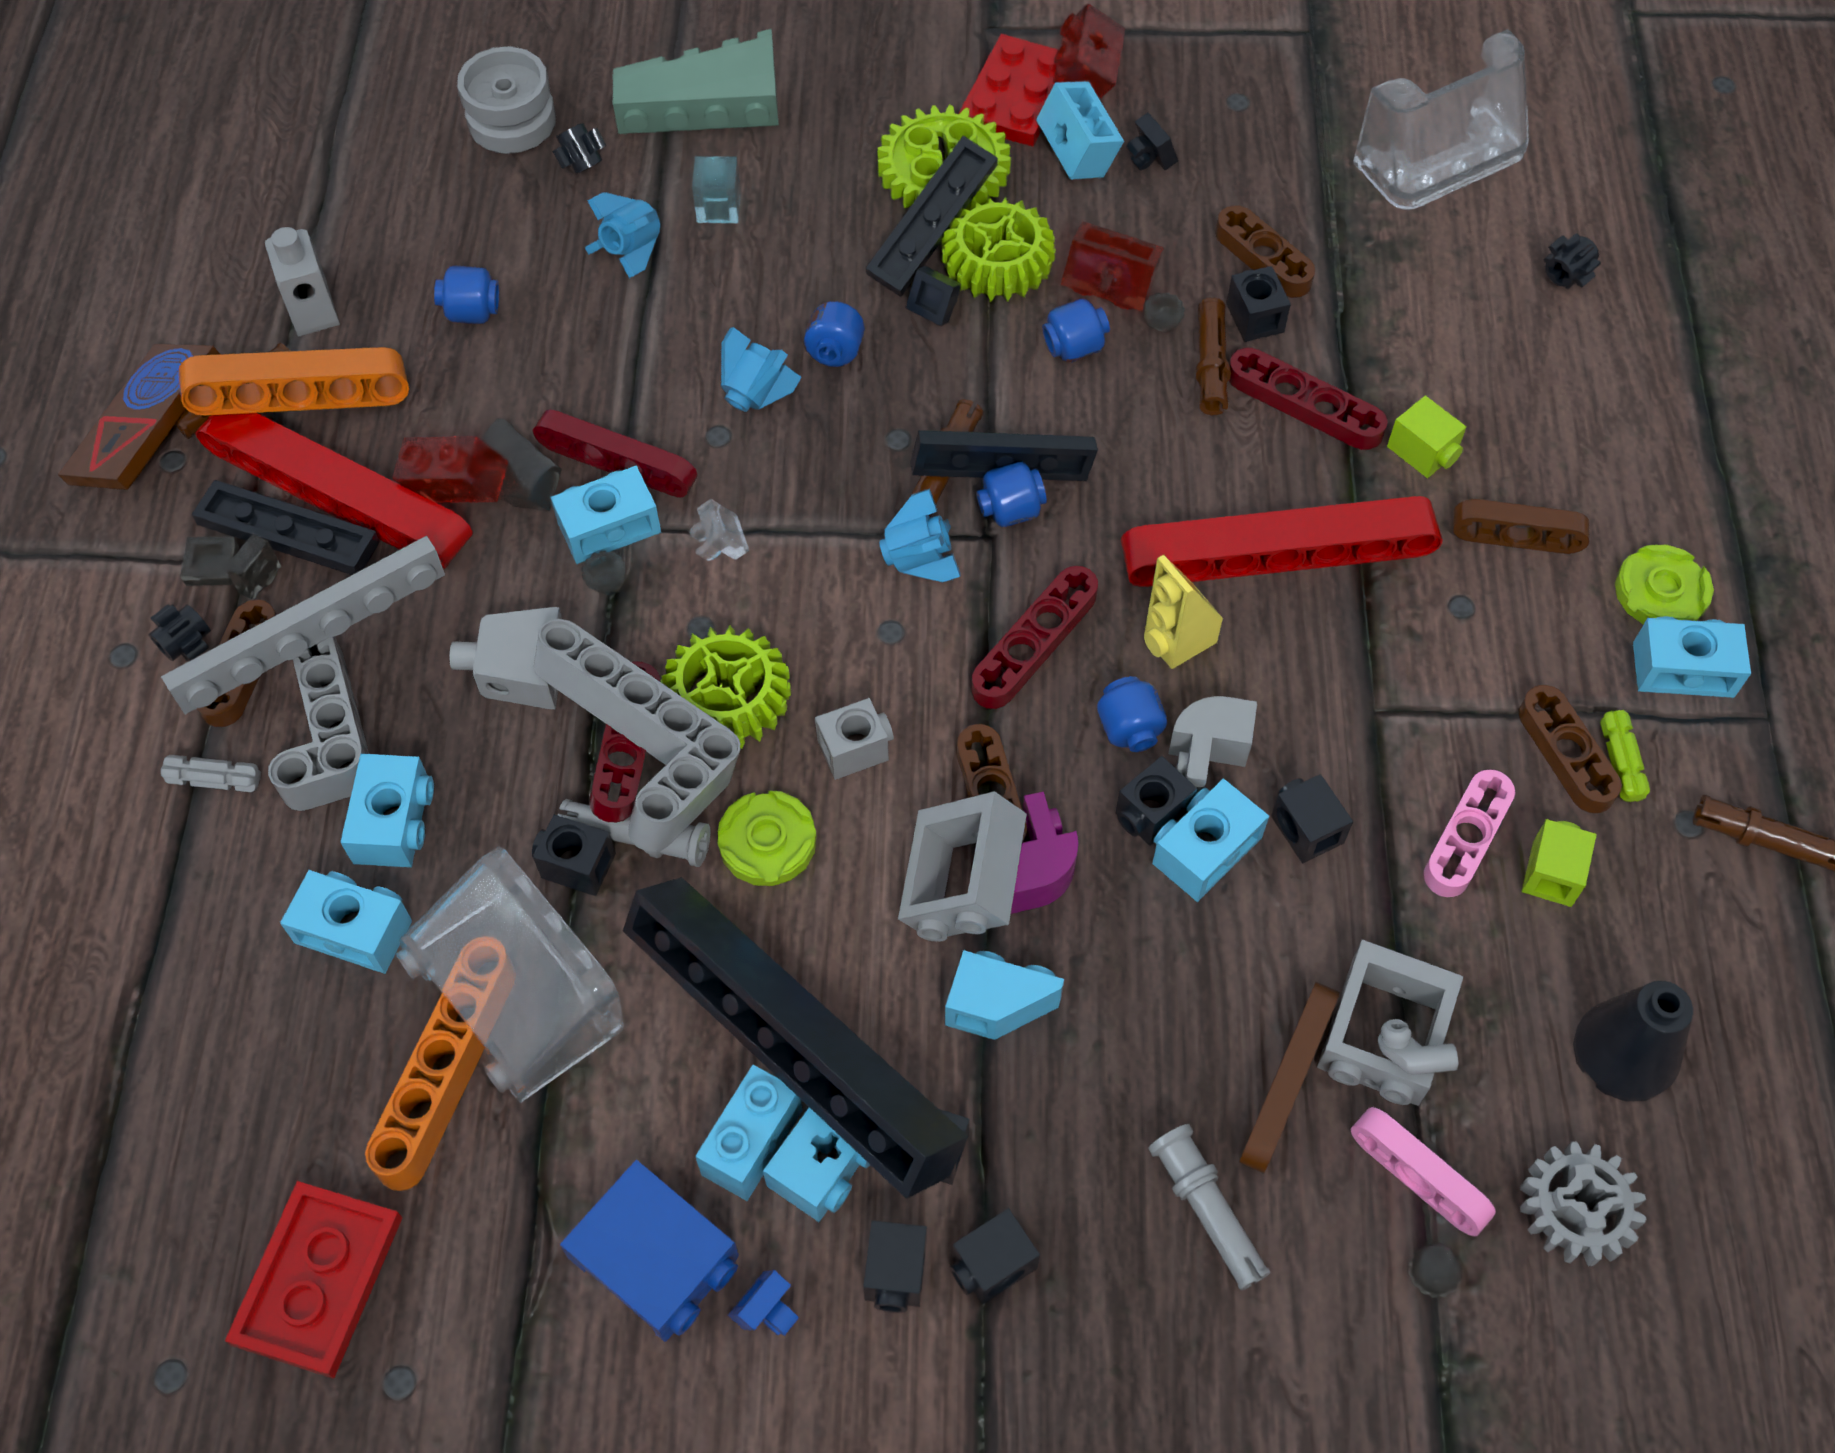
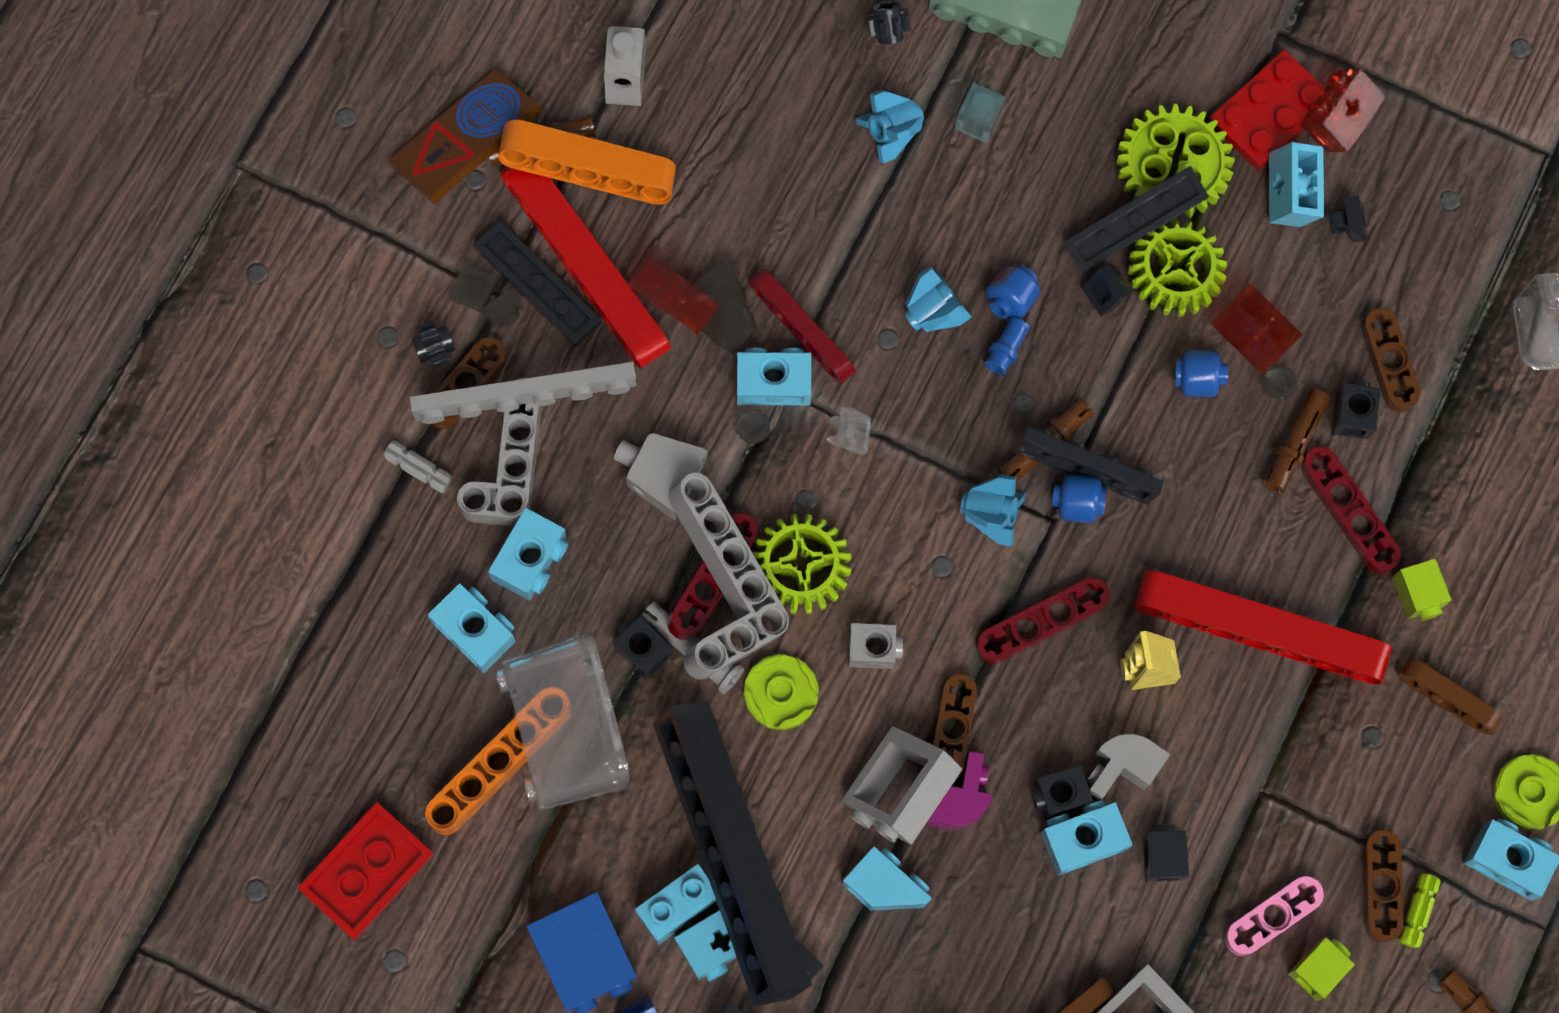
camera: 20 degrees right, 15 degrees up
(467, 294) = (746, 130): blue head -> none
(854, 393) = (1004, 350): none -> blue pin
(1132, 714) = (1079, 719): blue head -> none

